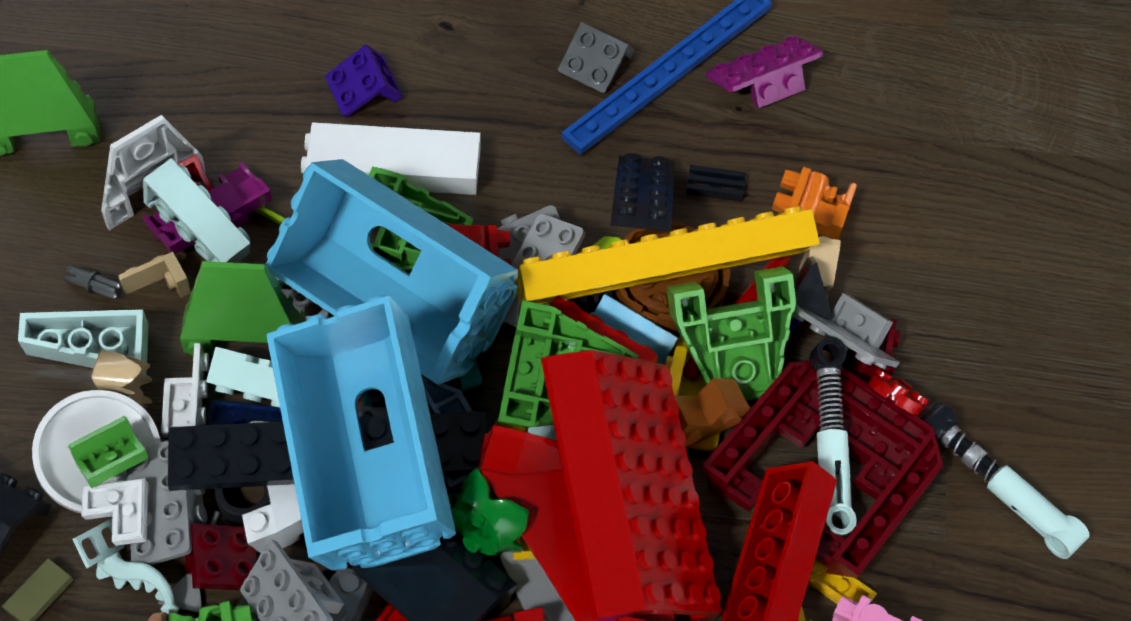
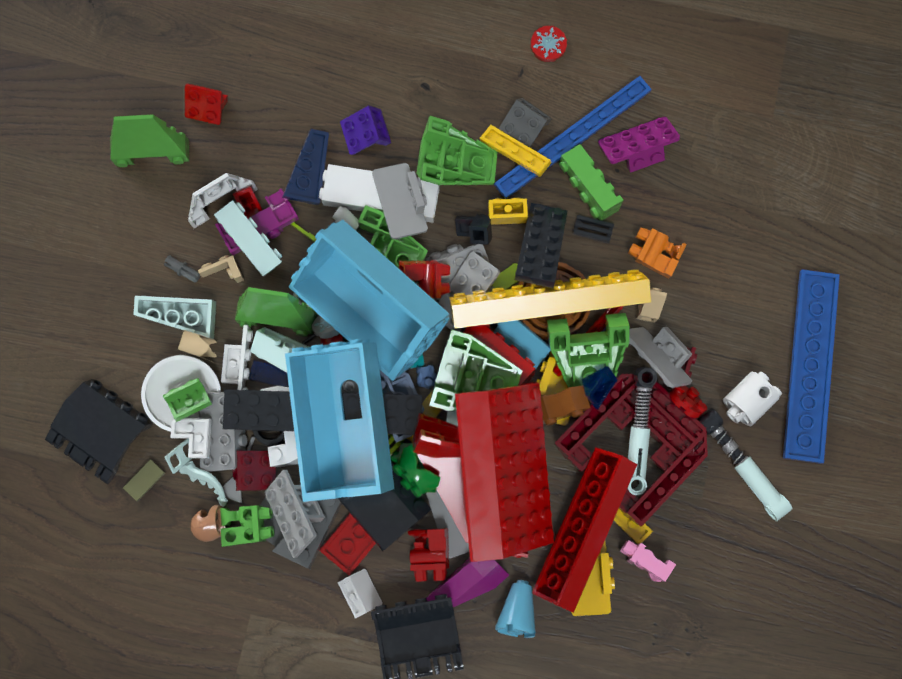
camera: 10 degrees right, 20 degrees up
(120, 62) = (204, 103): none -> red bracket
(283, 136) = (308, 171): none -> dark blue wing
(427, 154) = (401, 200): none -> light grey bracket
(487, 398) = (426, 376): none -> medium blue arm
(496, 103) = (453, 157): none -> bright green wedge
(539, 189) = (477, 228): none -> black brick
(586, 164) = (508, 211): none -> yellow brick
(587, 89) = (515, 150): none -> yellow tile
(704, 122) = (590, 183): none -> bright green wedge
(759, 376) = (599, 385): none -> clear blue slope
(810, 290) = (641, 325): black slope -> none
(993, 381) = (751, 398): none -> white cylinder
(1074, 341) = (811, 367): none -> blue plate

